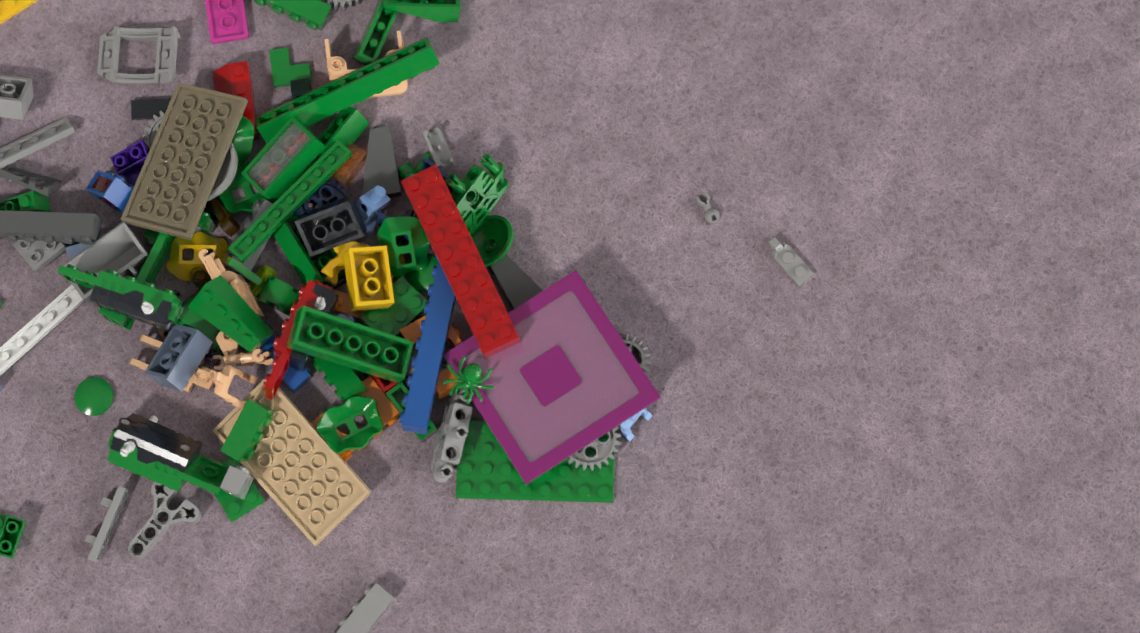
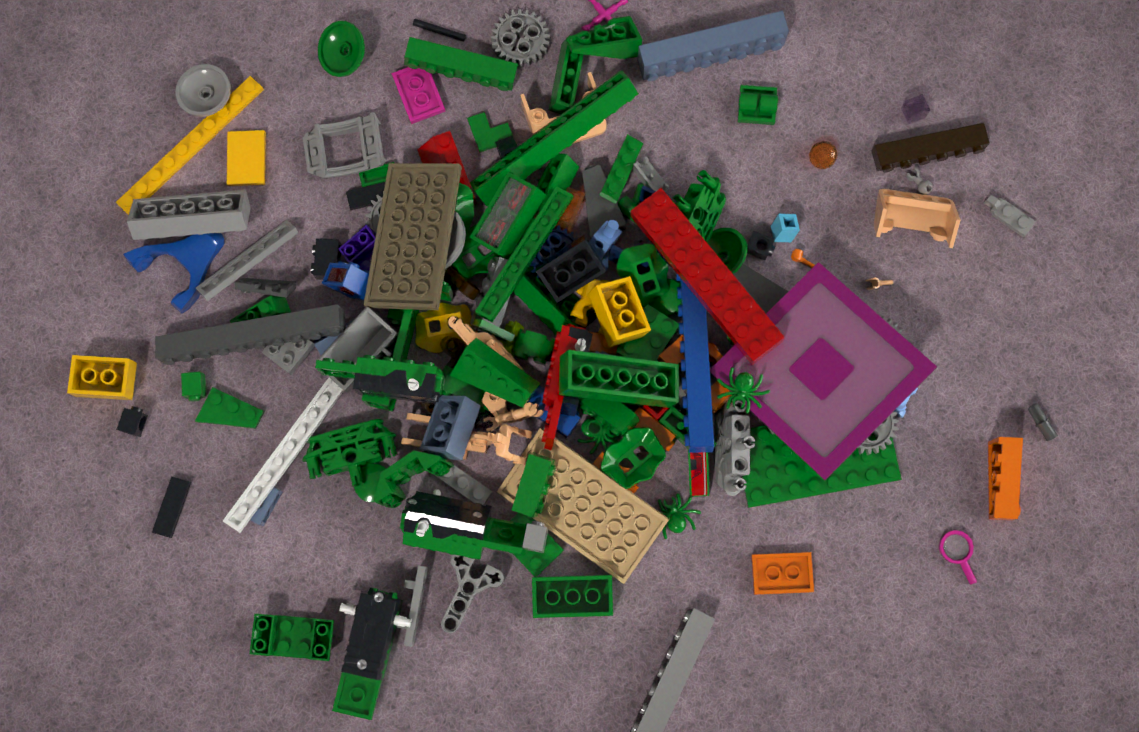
camera: 10 degrees left, 0 degrees up
(39, 45) = (246, 158): none -> yellow tile
(52, 557) = (367, 651): none -> piece
(68, 352) = (341, 443): none -> green piece
(96, 158) = (325, 252): none -> black brick
(106, 405) = (388, 488): none -> green slope
(163, 90) = (374, 175): none -> green tile
(181, 415) = (466, 485): none -> light grey plate
(261, 547) = (572, 596): none -> green brick
(326, 393) = (594, 429): none -> green animal
(381, 490) = (675, 514): none -> green animal
(409, 134) = (621, 169): none -> green plate
(412, 454) = (698, 474): none -> slope
(472, 568) = (782, 573): none -> orange plate
(527, 233) = (757, 238): none -> black brick
(530, 27) = (712, 46): none -> sand blue brick
(558, 228) = (785, 228): none -> medium azure brick
(563, 96) = (757, 105): none -> green plate
(566, 259) = (797, 257): none -> orange hand
(617, 161) = (823, 155): none -> clear orange hair
(638, 302) = (876, 283): none -> light nougat hand
(650, 581) = (957, 548): none -> piece
(692, 238) = (916, 212): none -> light nougat windscreen
(712, 522) = (1004, 477): none -> orange wedge
(721, 134) = (915, 109): none -> clear purple brick
(727, 177) = (930, 147): none -> dark brown brick
(766, 474) = (1042, 422): none -> dark grey axle

